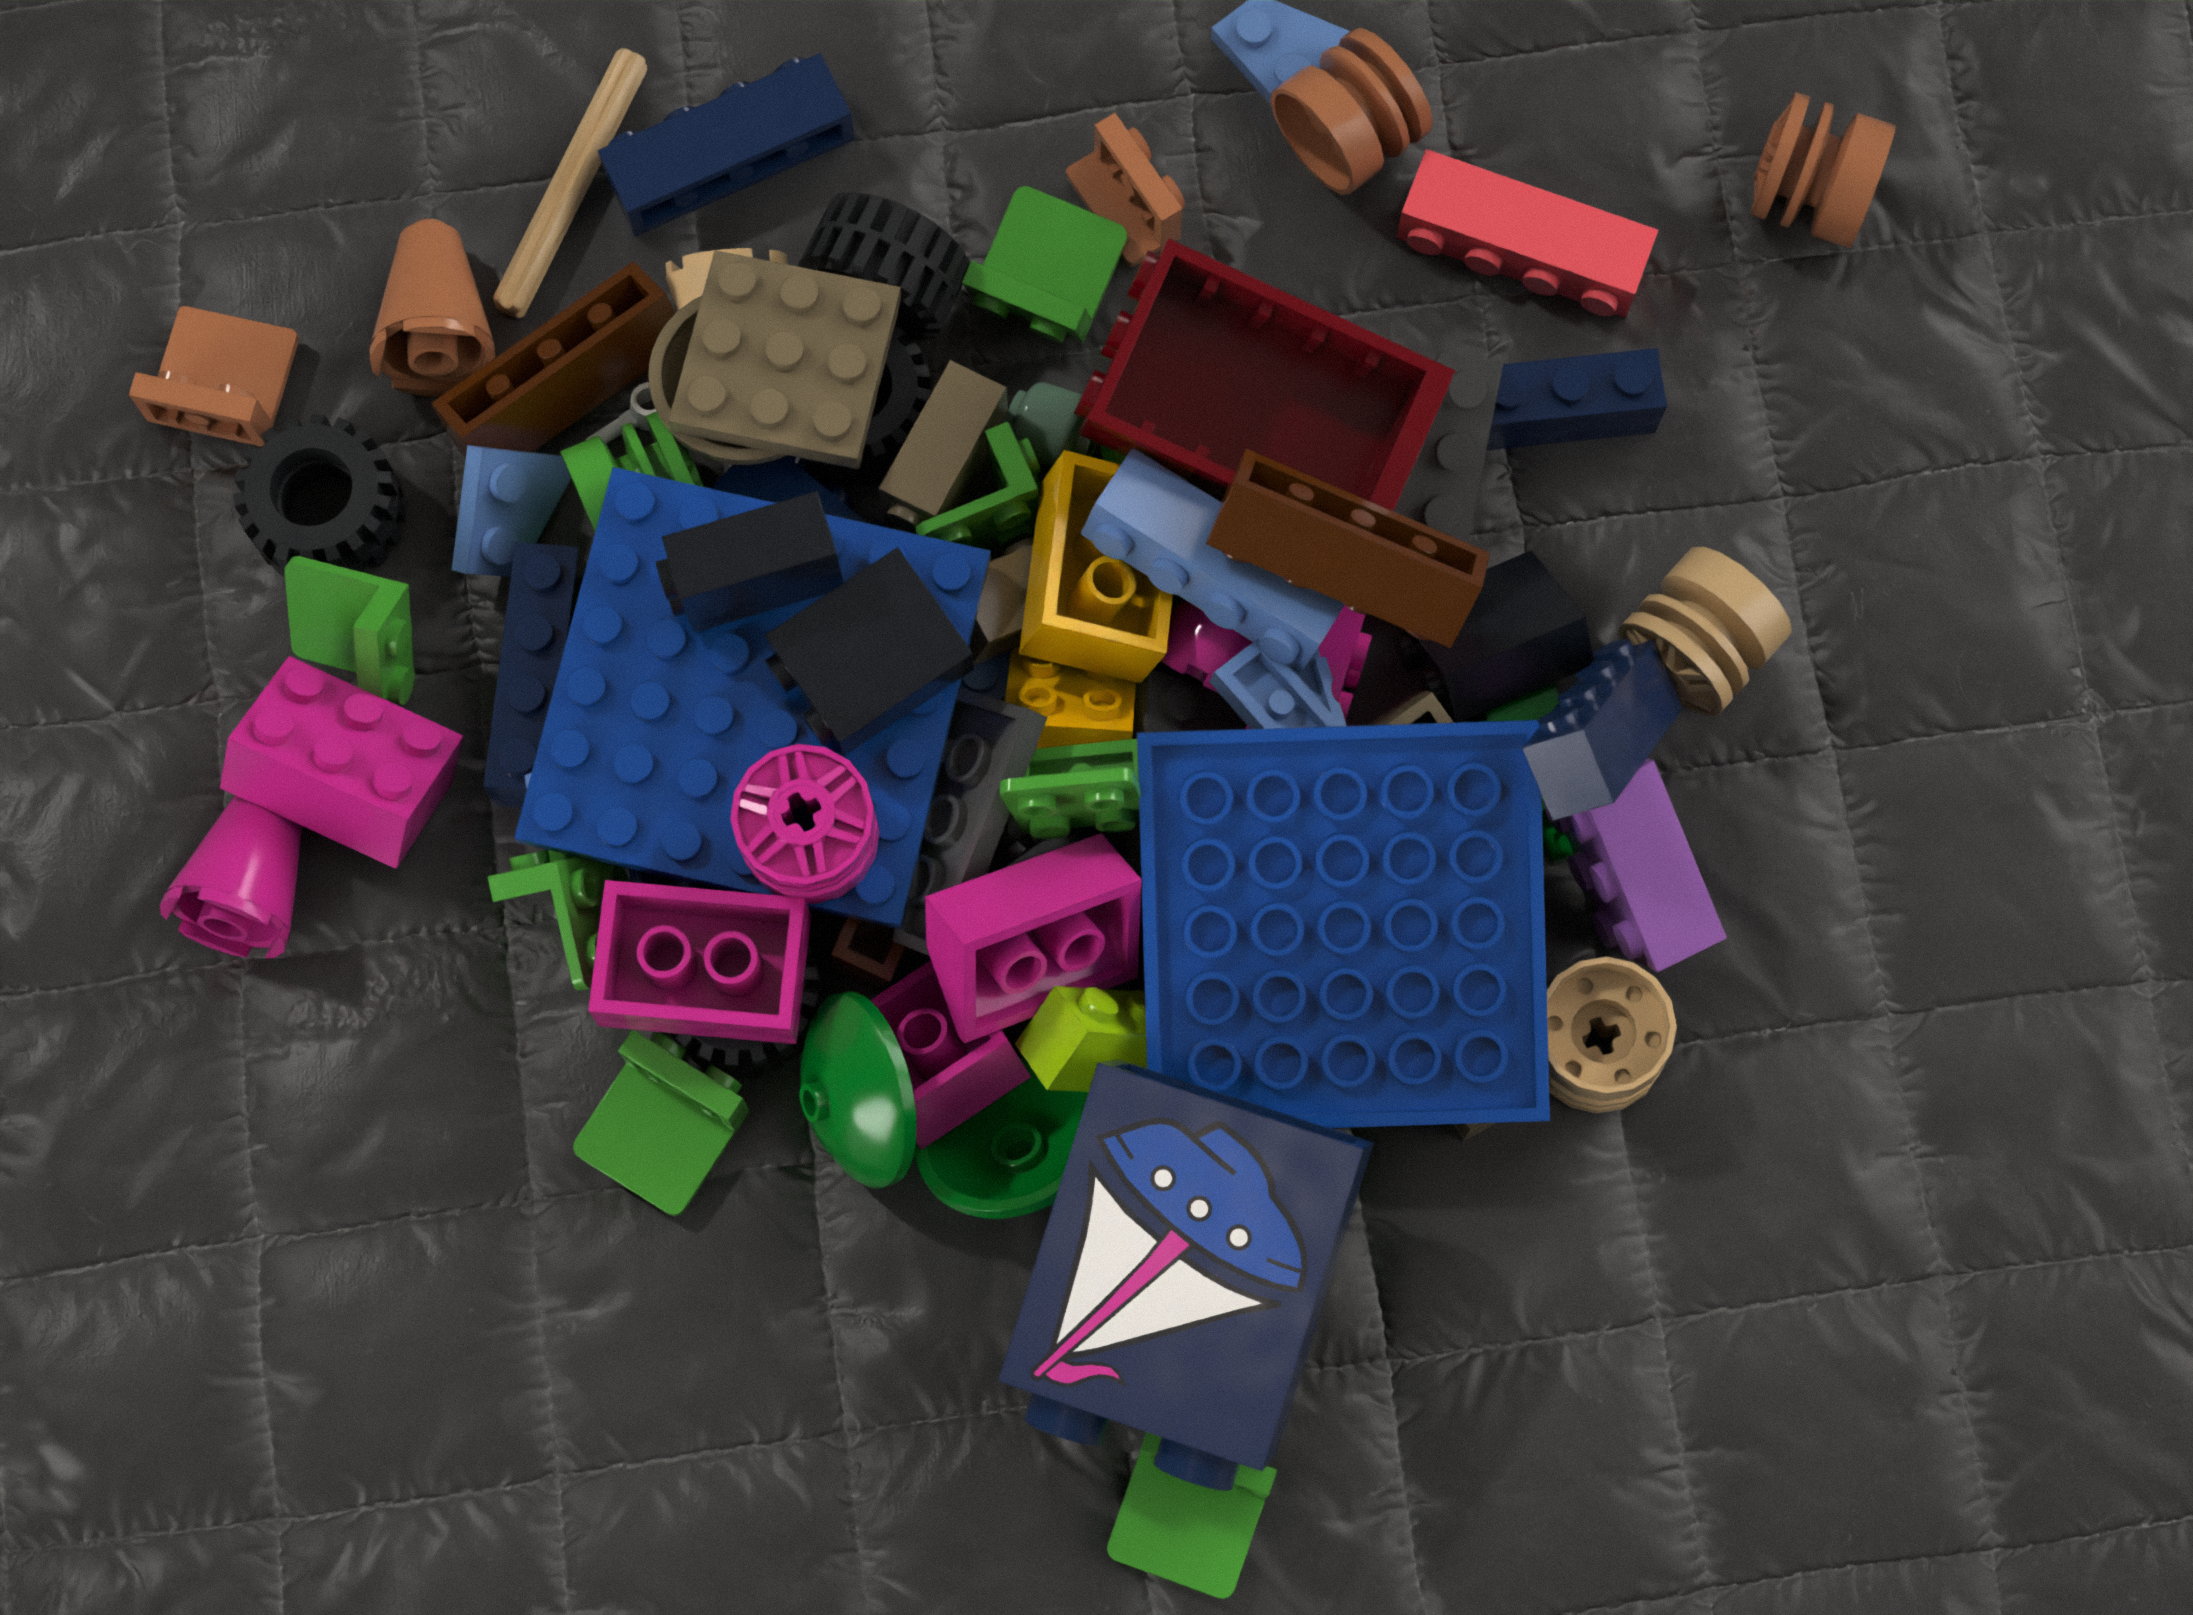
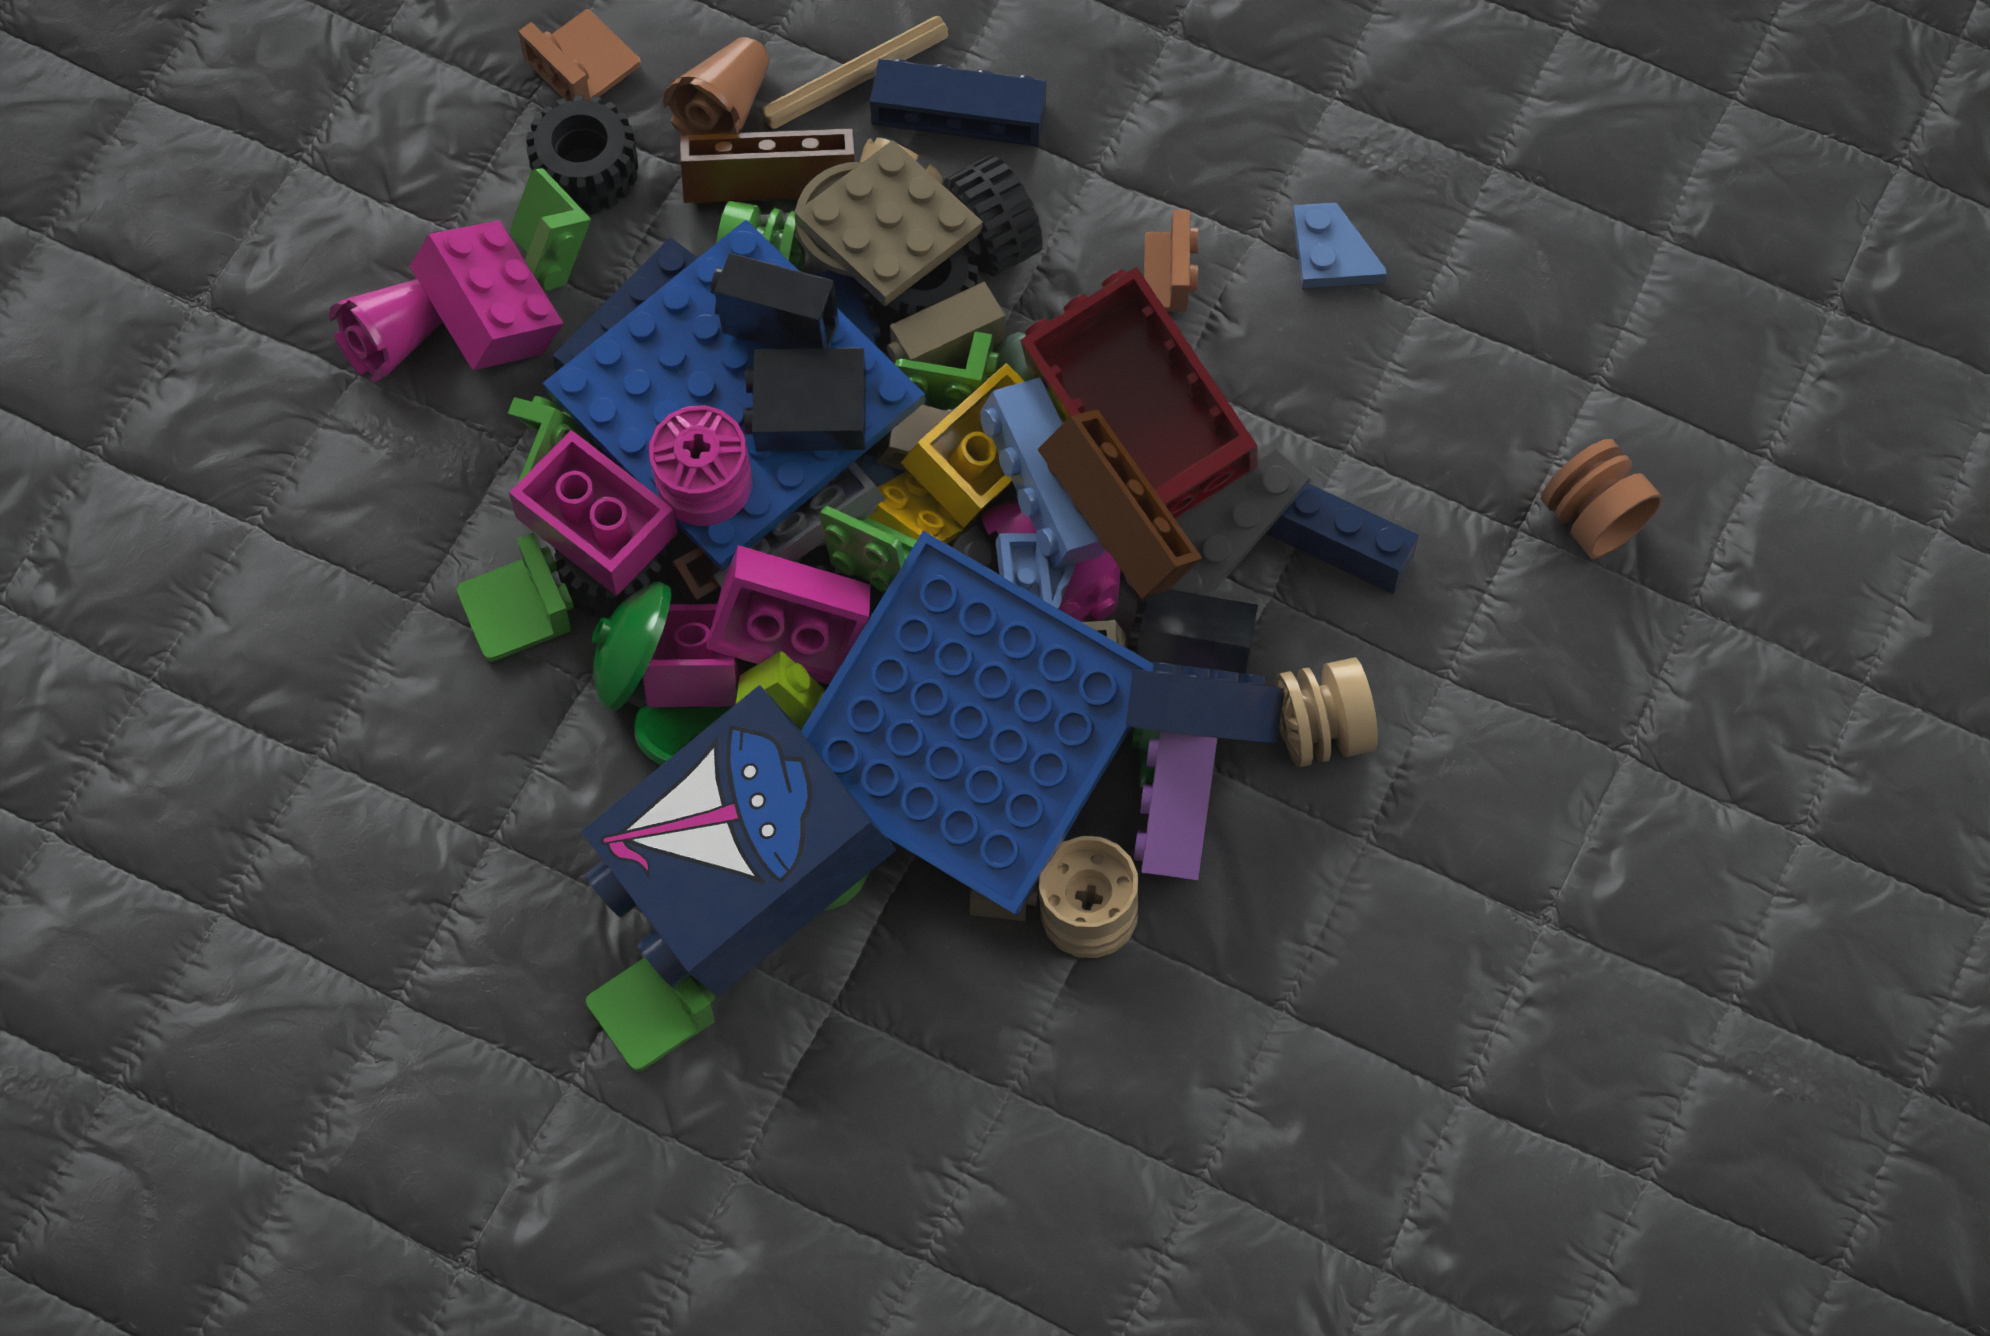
camera: 35 degrees right, 10 degrees down
(504, 502) = (682, 212): medium blue wing -> none
(1047, 265) = (1084, 264): bright green bracket -> none
(1351, 111) = (1336, 295): nougat wheel -> none
(1525, 234) = (1395, 431): coral brick -> none

